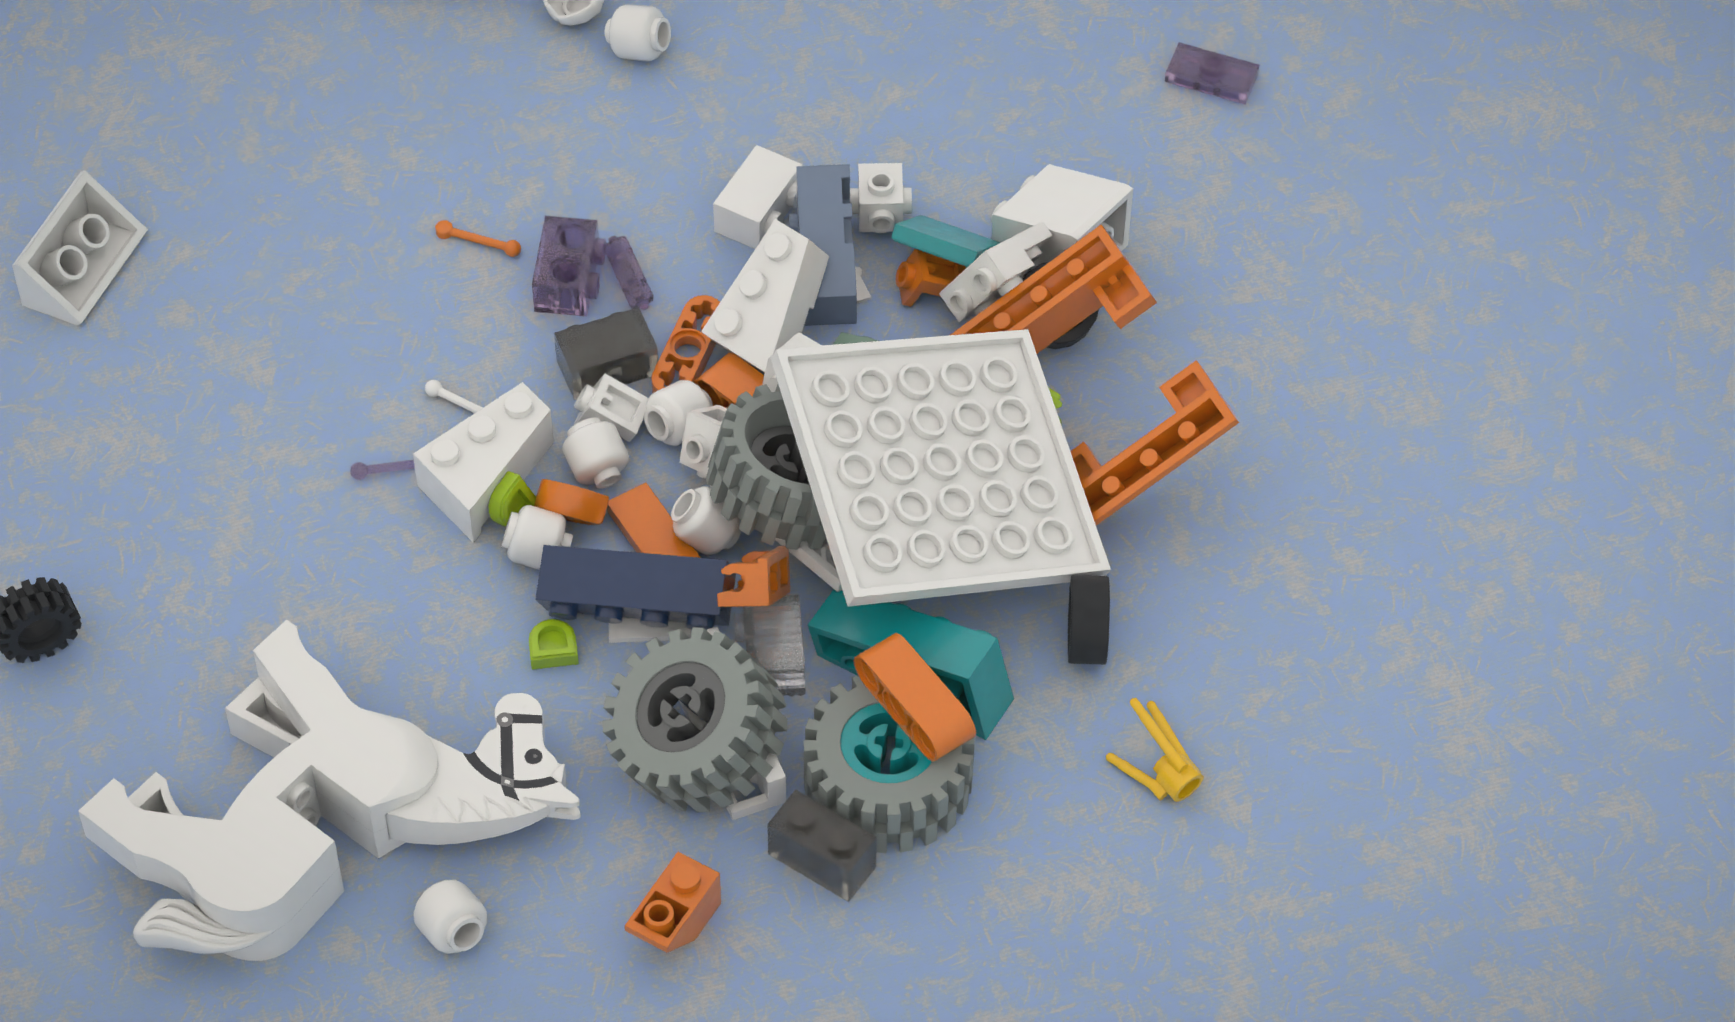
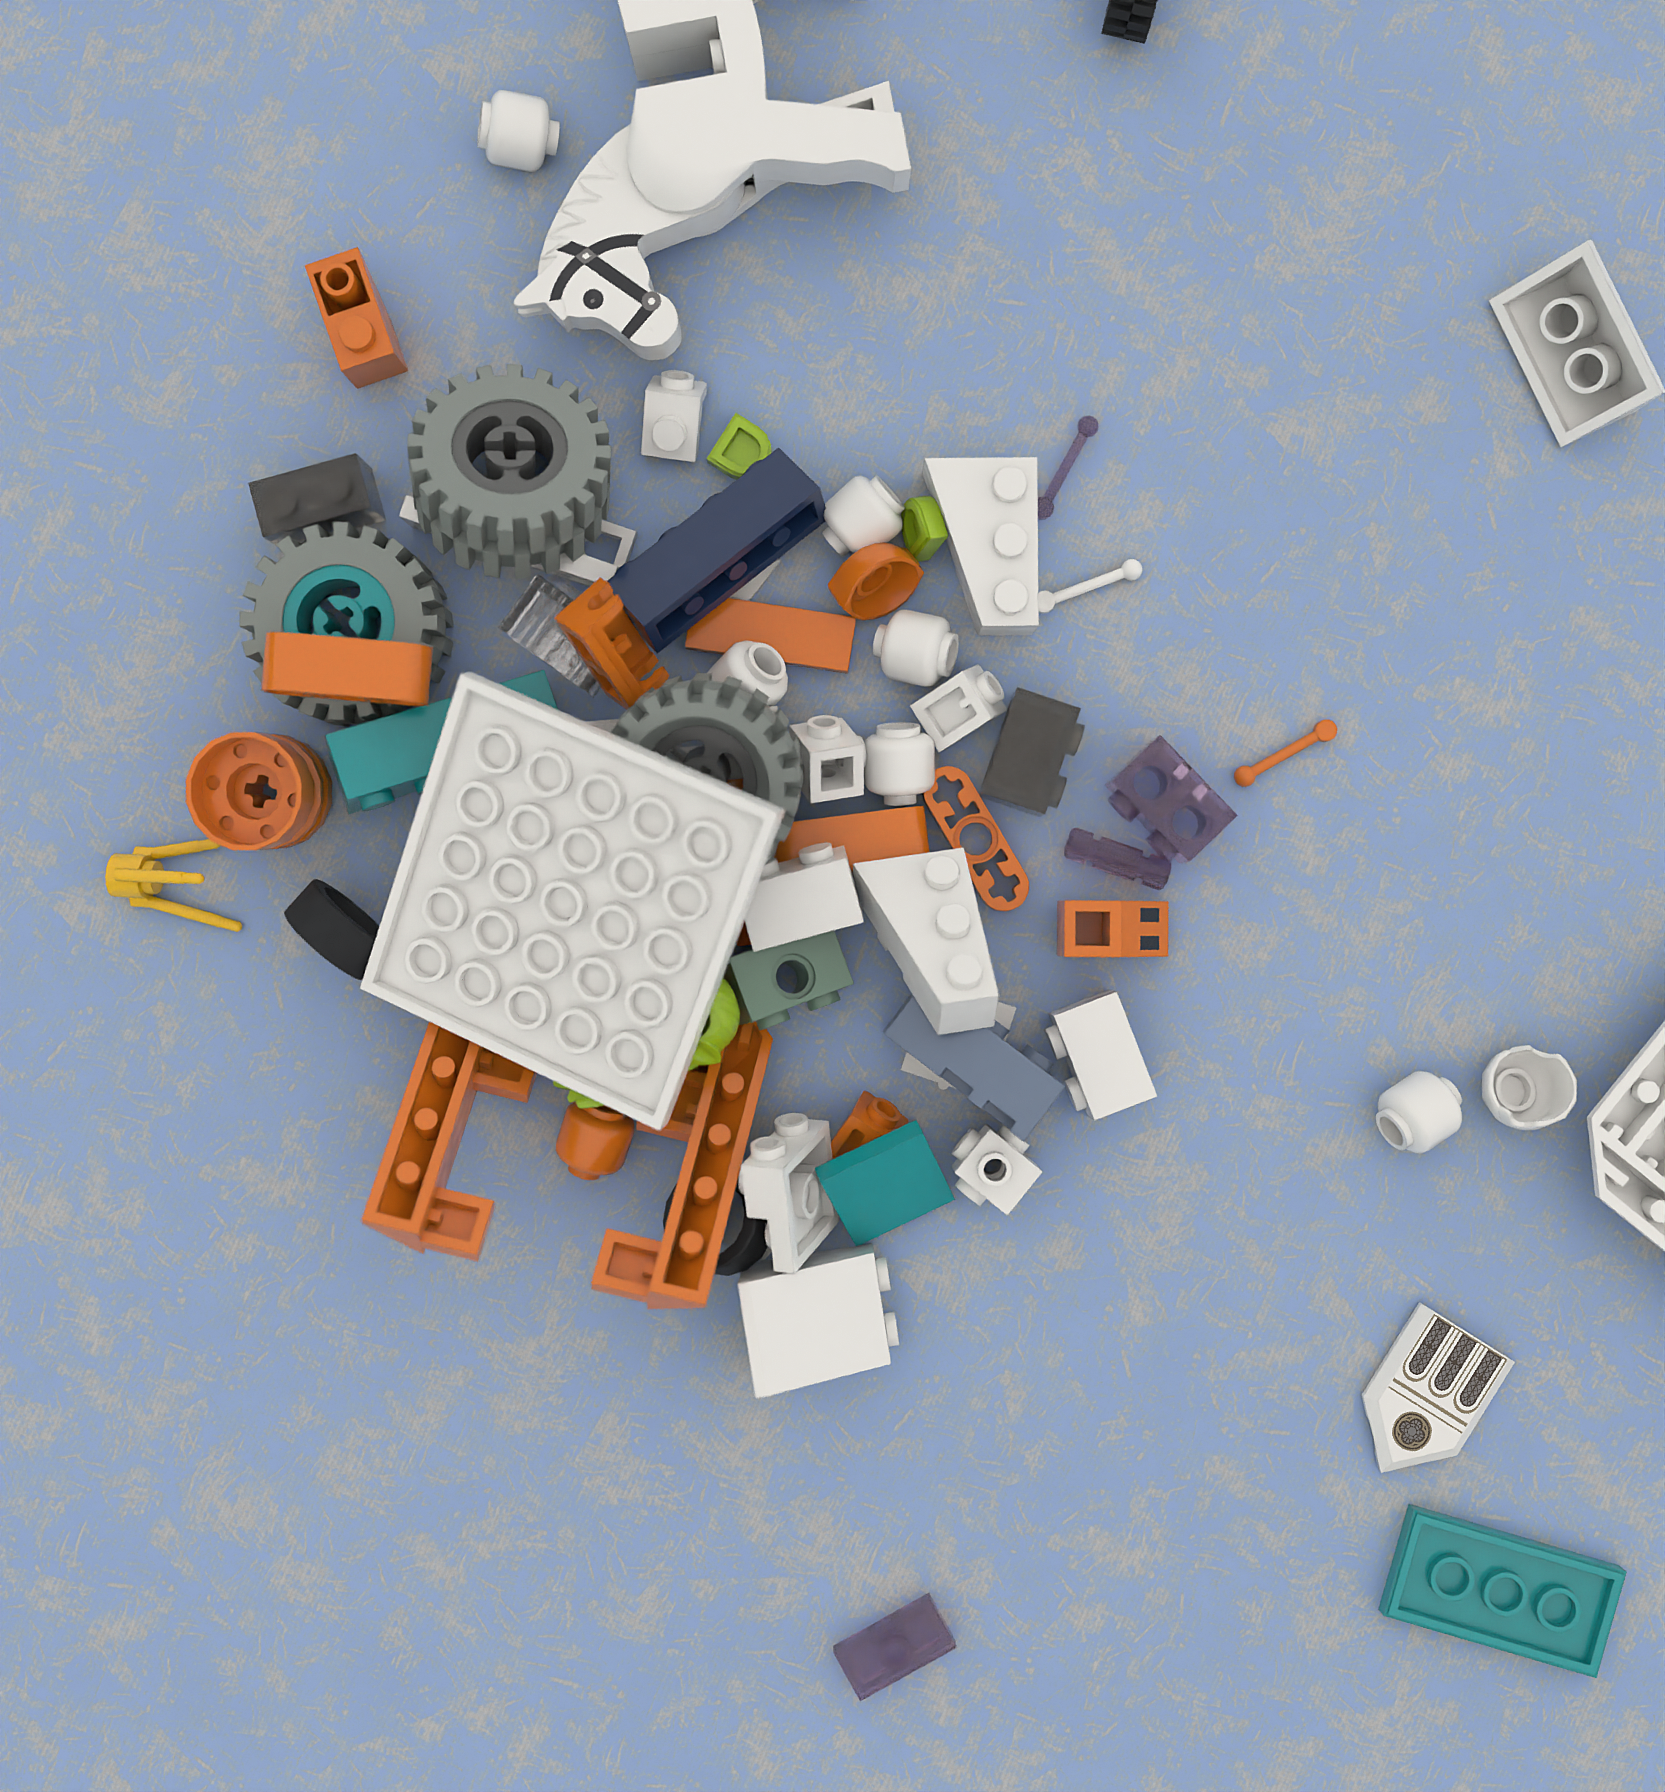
camera: 135 degrees right, 35 degrees up
(566, 689) = (673, 416): none -> white bracket
(680, 242) = (1112, 928): none -> orange slope
(1045, 724) = (229, 799): none -> orange wheel
(1082, 406) = (594, 1140): none -> orange head

